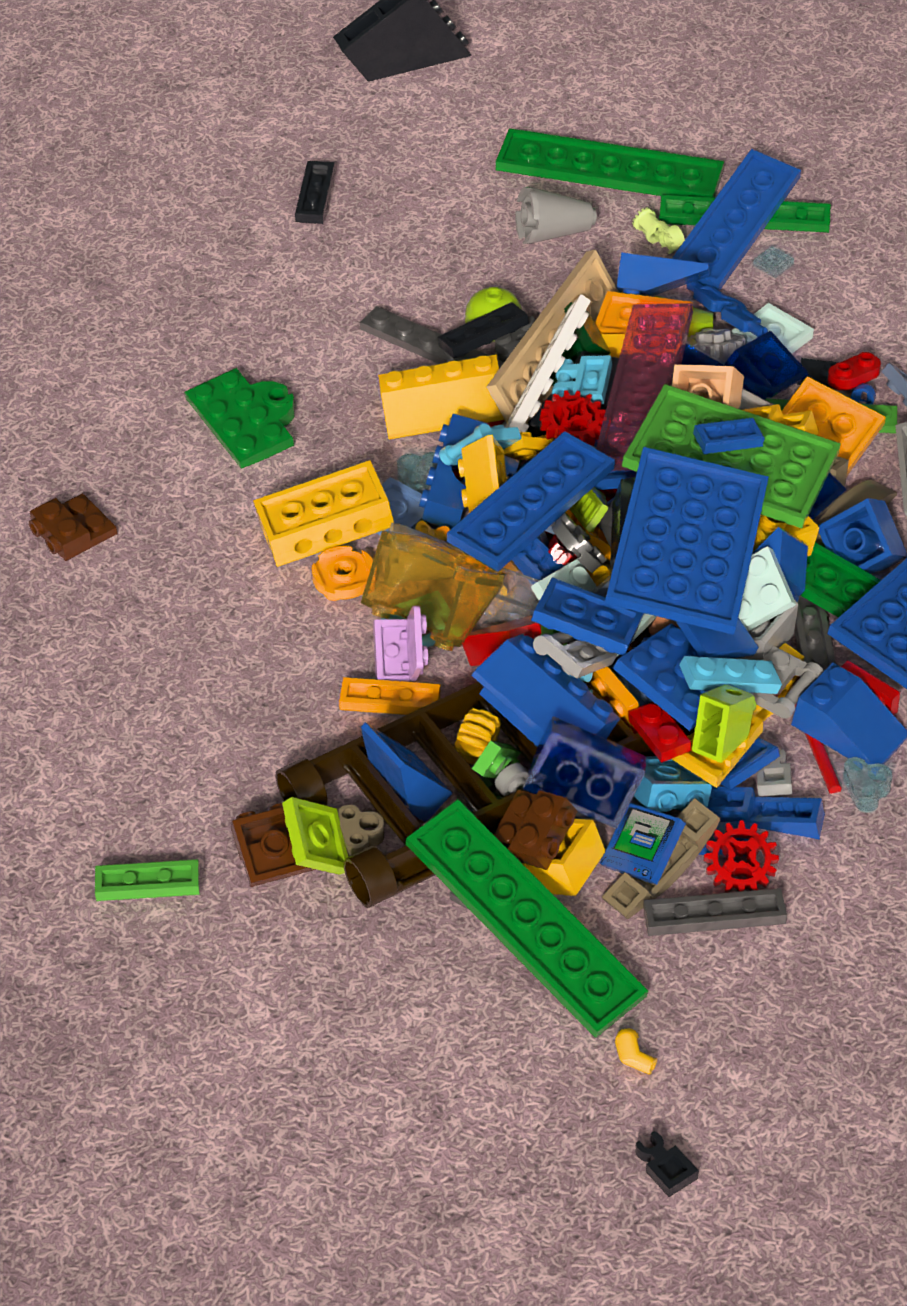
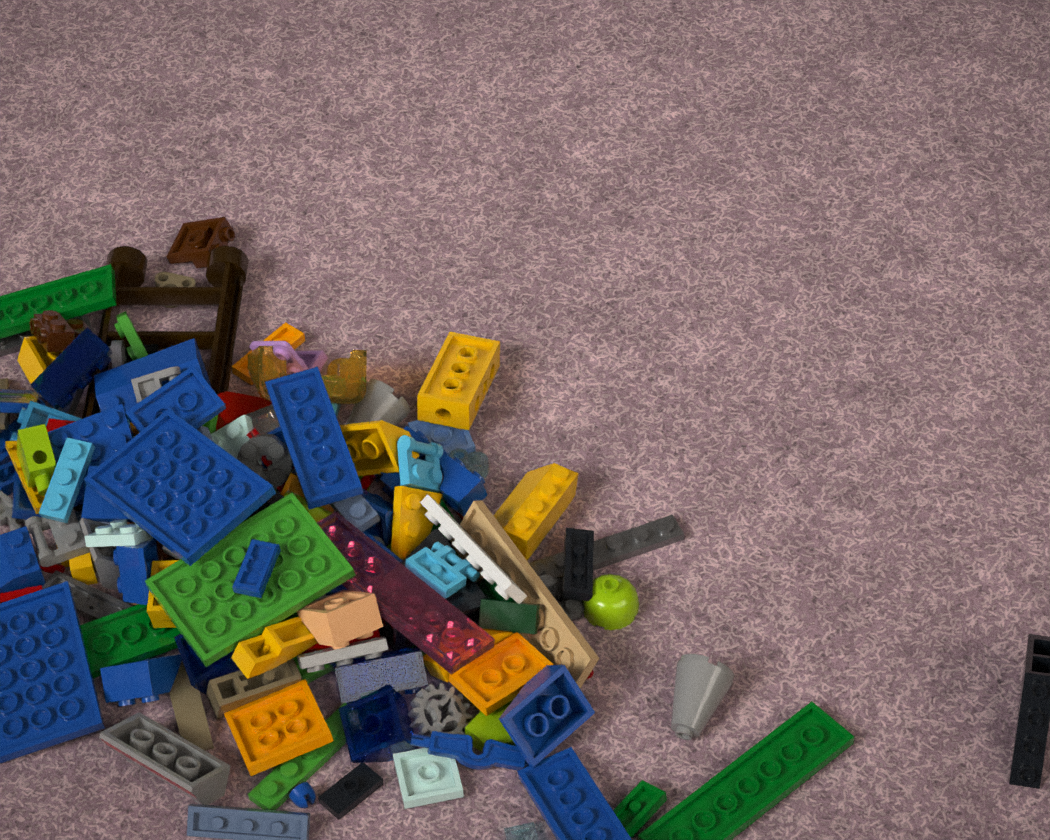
camera: 125 degrees right, 0 degrees up
(70, 526) = (584, 265): reddish brown plate -> none
(147, 880) = (234, 182): bright green plate -> none
(245, 415) = (622, 402): green plate -> none
(315, 192) = (869, 563): black plate -> none
(315, 835) = (175, 249): lime plate -> none
(336, 586) = (405, 370): light orange plate -> none
(405, 773) = (176, 295): blue slope -> none
(574, 415) = (401, 533): red gear -> none
(658, 230) = (623, 771): yellowish green connector -> none
(854, 371) = (325, 791): red plate -> none

